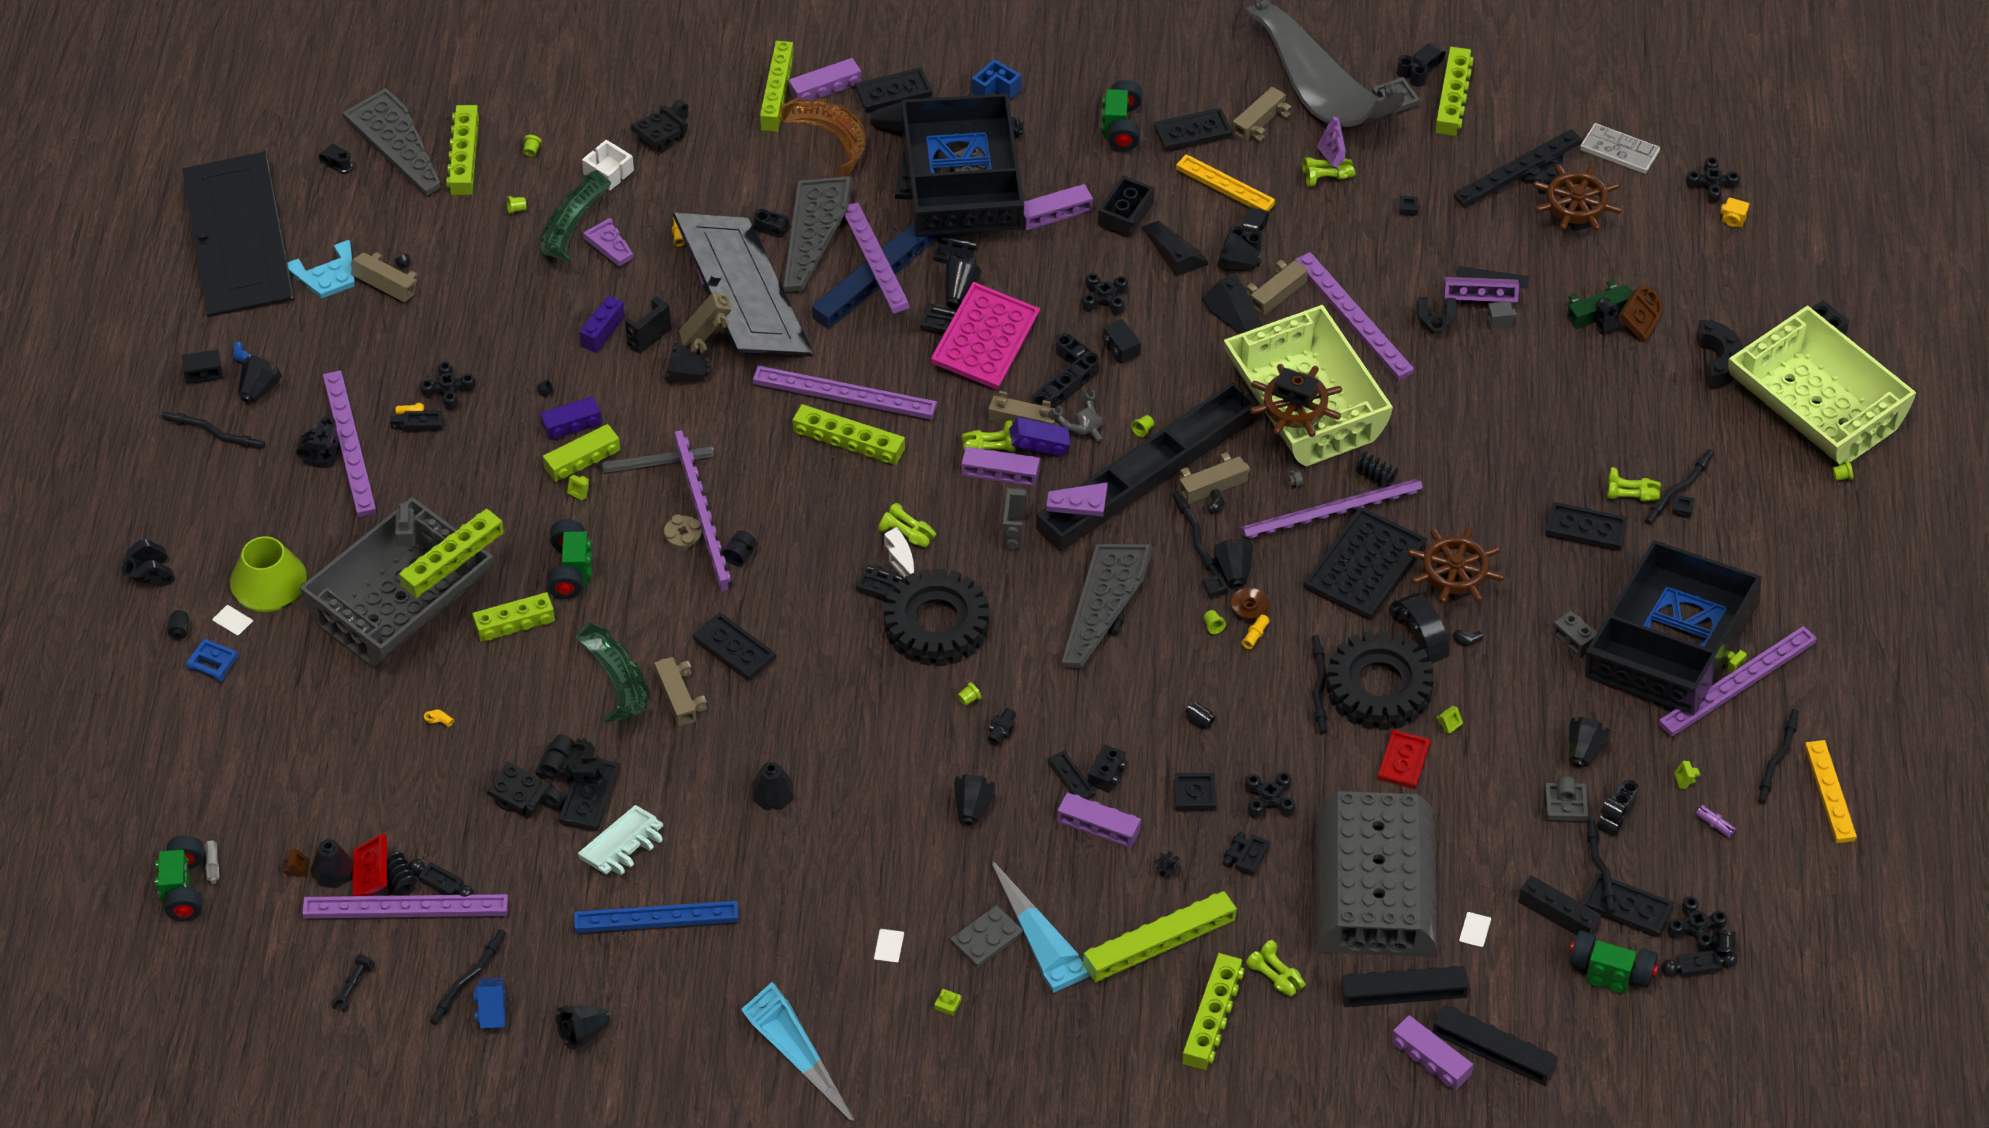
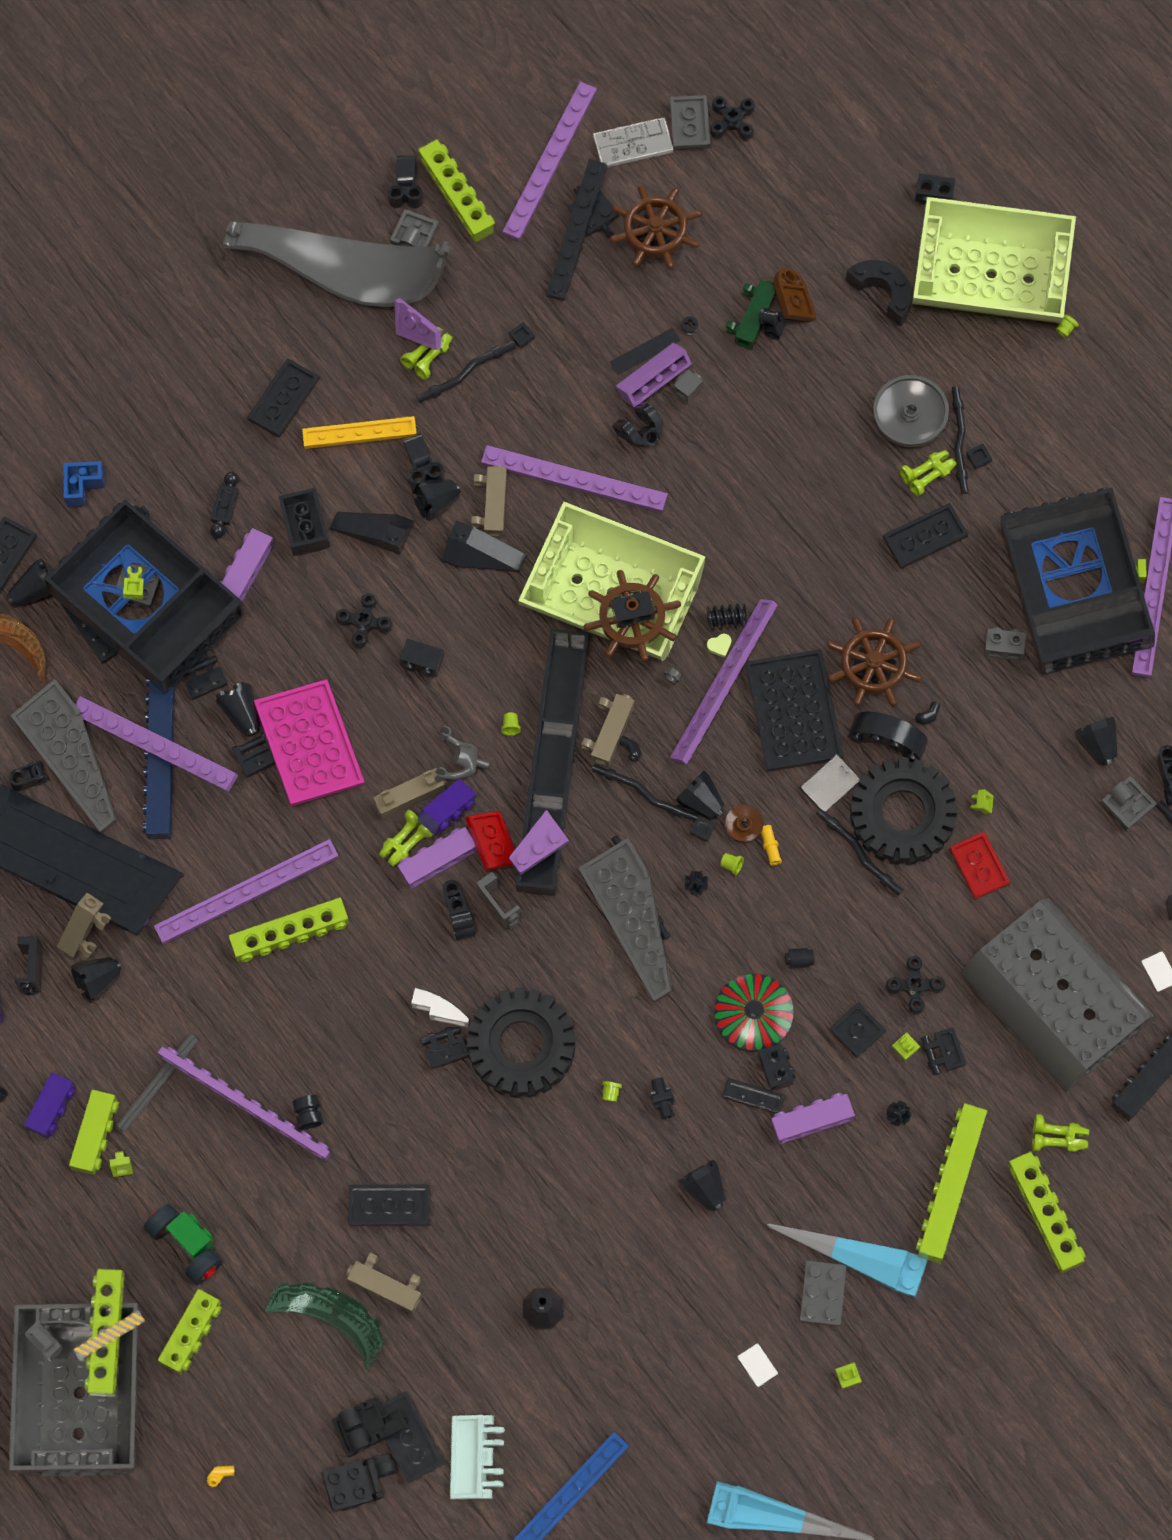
camera: 40 degrees left, 20 degrees up
(450, 551) = (109, 1335): none -> sticker
(683, 523) = (239, 1144): dark tan plate -> none
(919, 534) = (429, 980): lime piece -> none
(957, 144) = (133, 584): none -> lime plate
(978, 506) = (461, 918): none -> black piece
(1050, 476) = (491, 839): none -> red tile
(1081, 162) = (224, 505): none -> black plate
(1082, 369) = (415, 720): black beam -> none
(1119, 131) = (214, 437): brick -> none
(1129, 724) = (753, 1012): none -> dish
(1173, 613) = (696, 882): none -> black gear
(1221, 829) = (905, 1046): none -> lime tile
(1259, 114) = (323, 339): dark tan brick -> none
(1341, 625) = (830, 783): none -> container
(1353, 486) = (719, 645): none -> yellowish green tile
(1378, 204) = (435, 390): none -> black bar
(1543, 286) = (685, 321): none -> black bush
(1544, 120) = (549, 161): none -> medium lavender plate
(1657, 439) = (910, 411): none -> dark grey dish
(1677, 162) = (690, 122): none -> dark grey plate
(1734, 212) = (777, 138): yellow brick -> none

